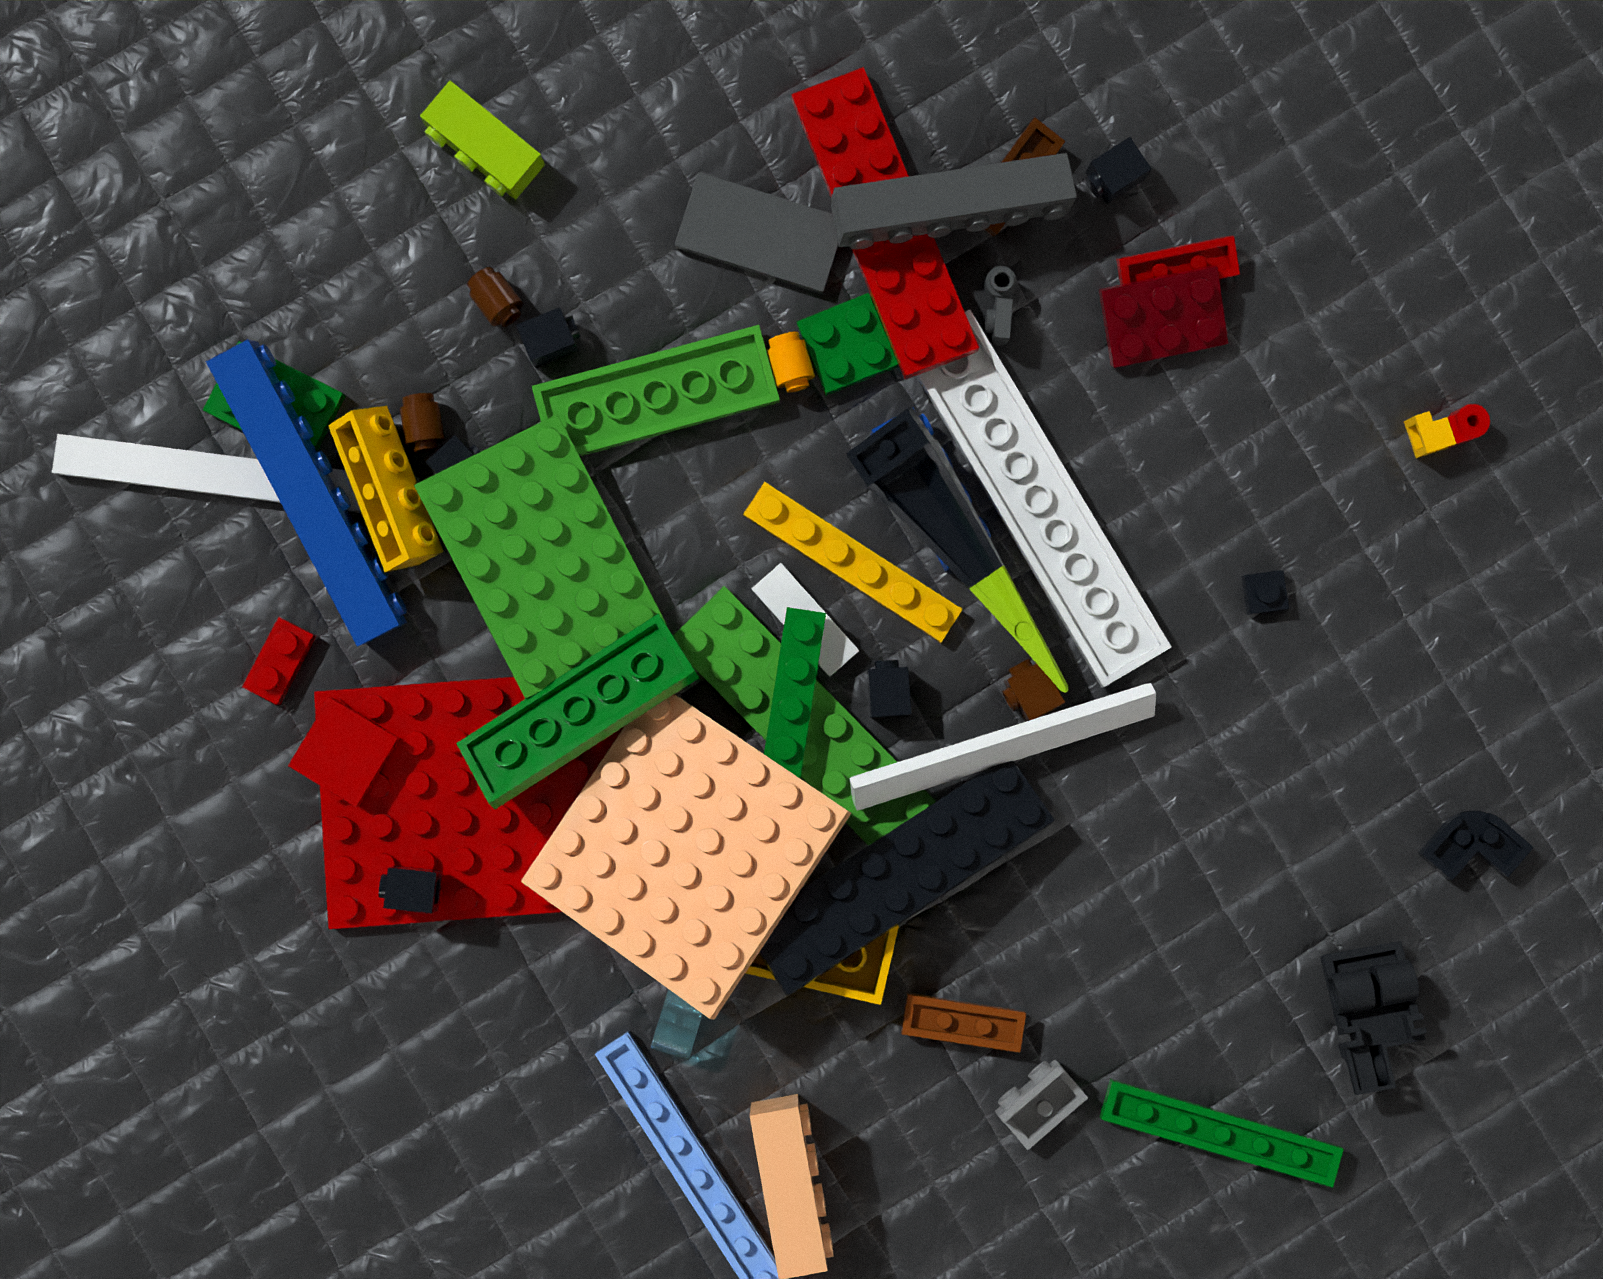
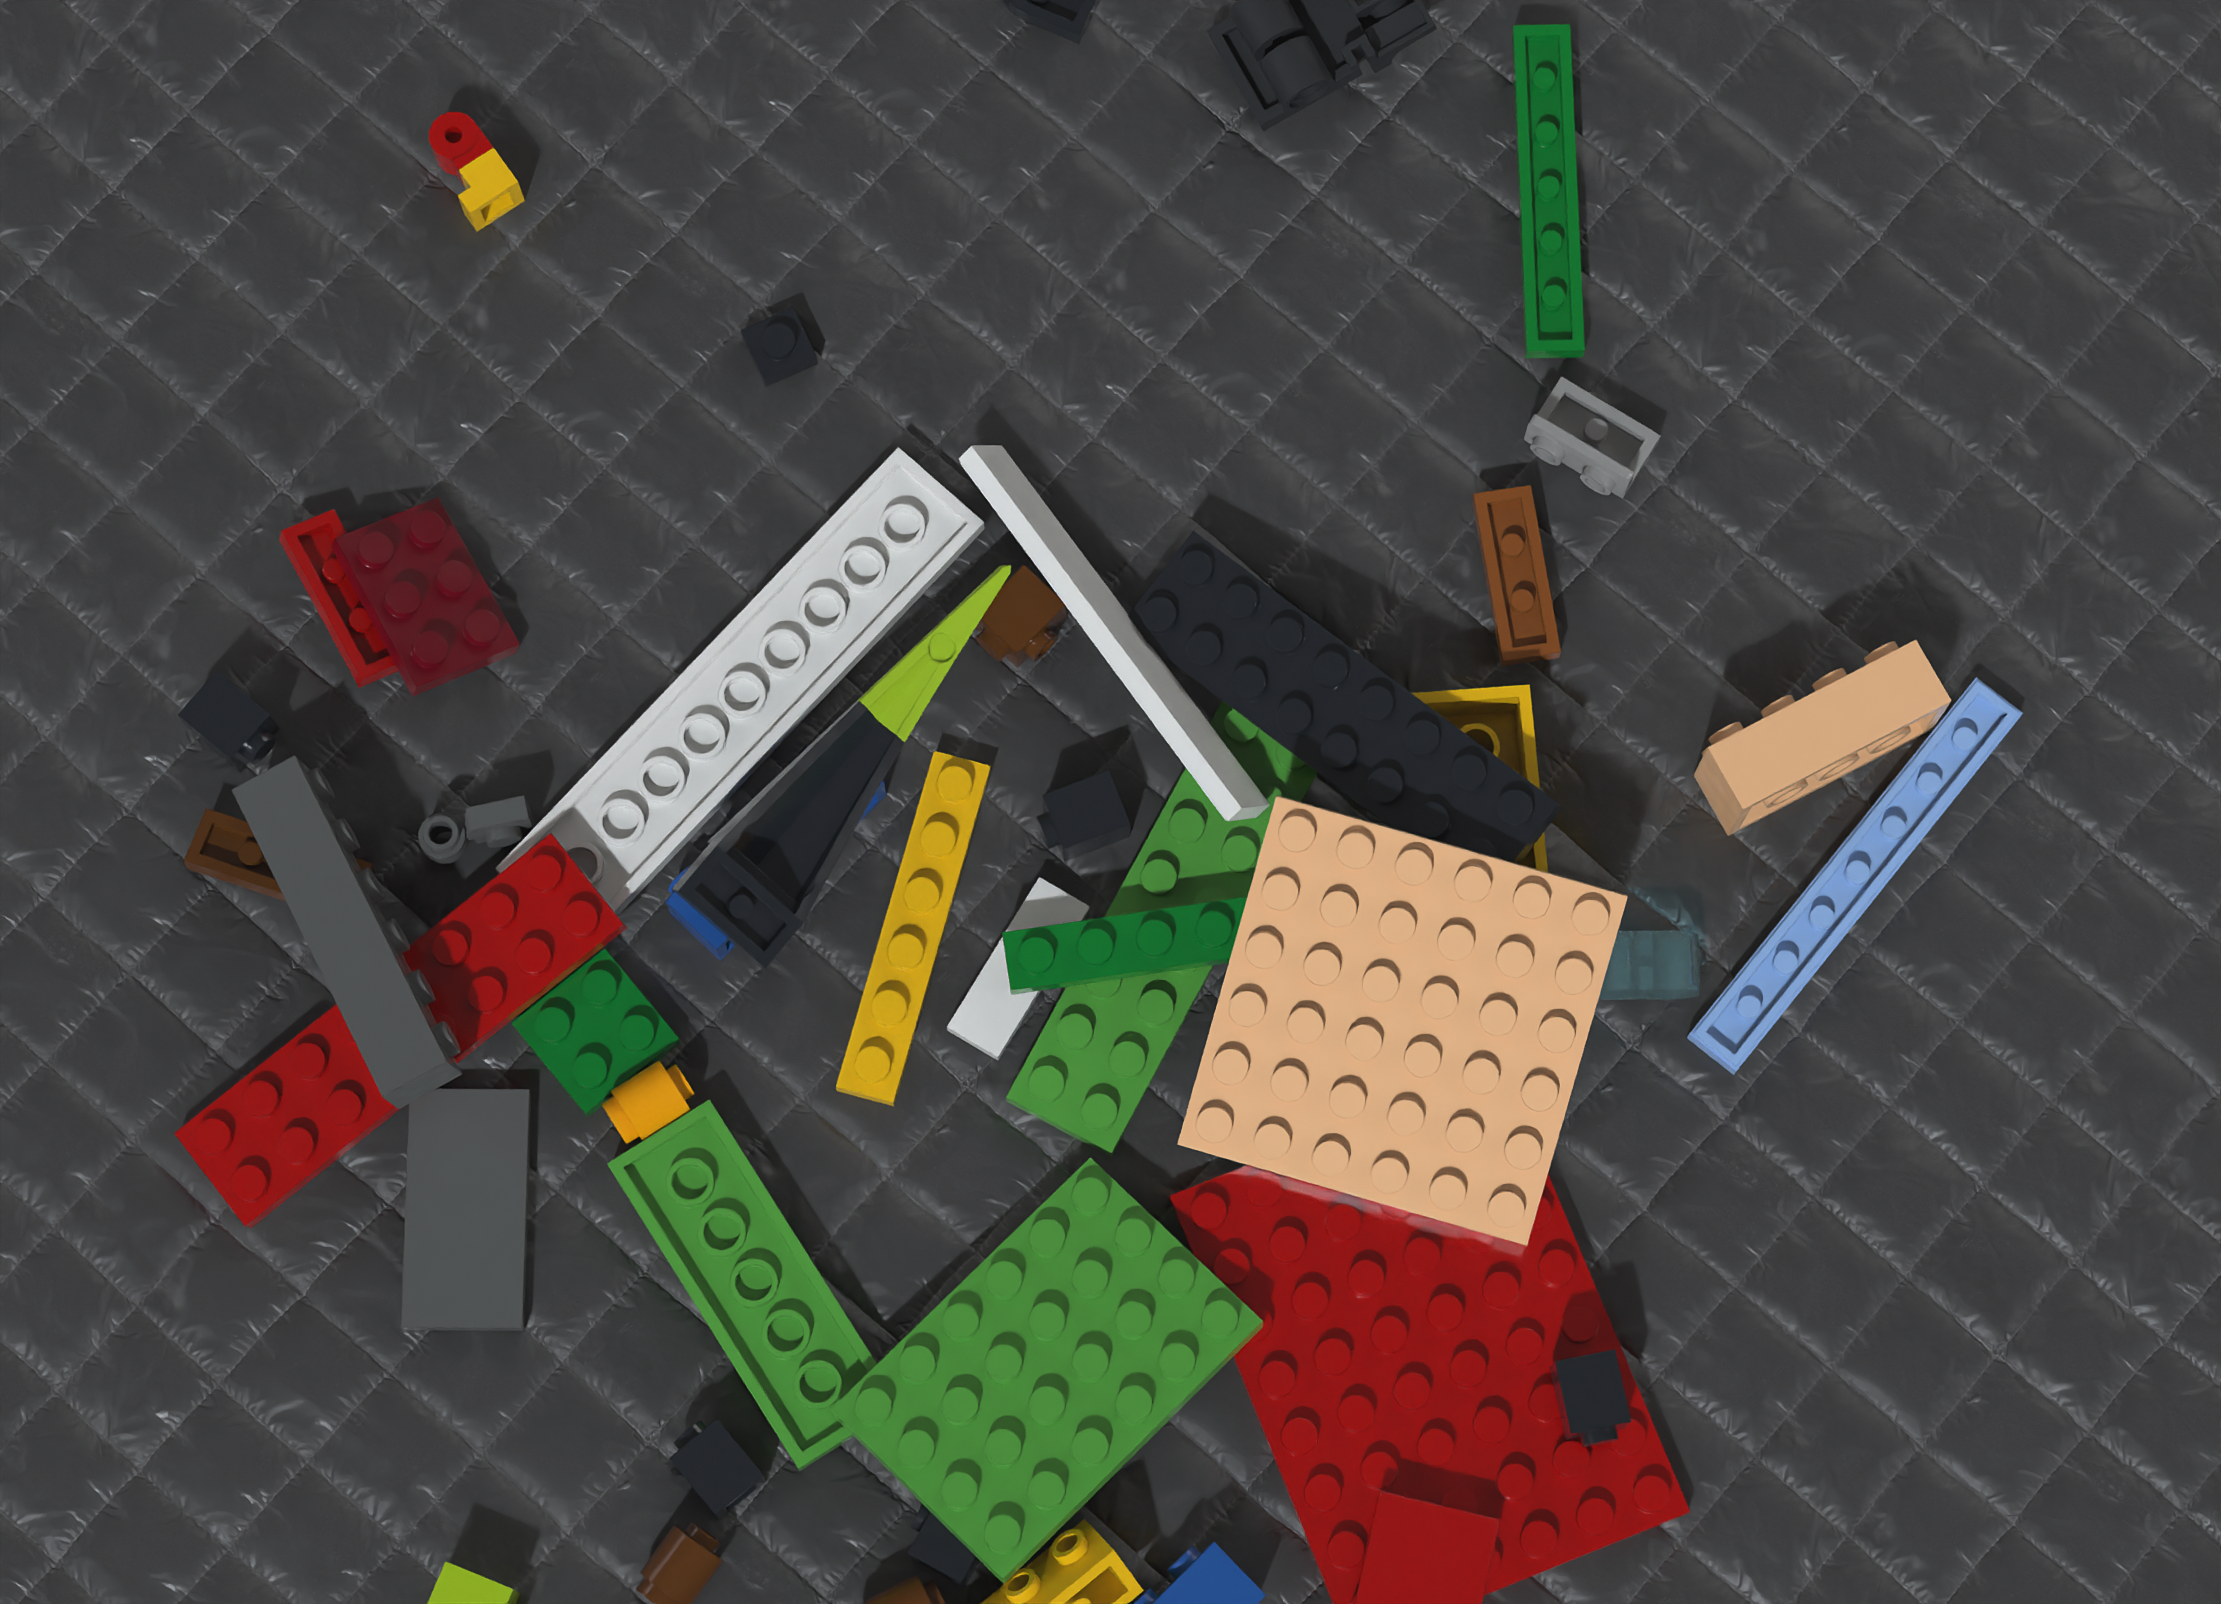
camera: 105 degrees left, 10 degrees down
(576, 711) = (1257, 1237): green plate -> none

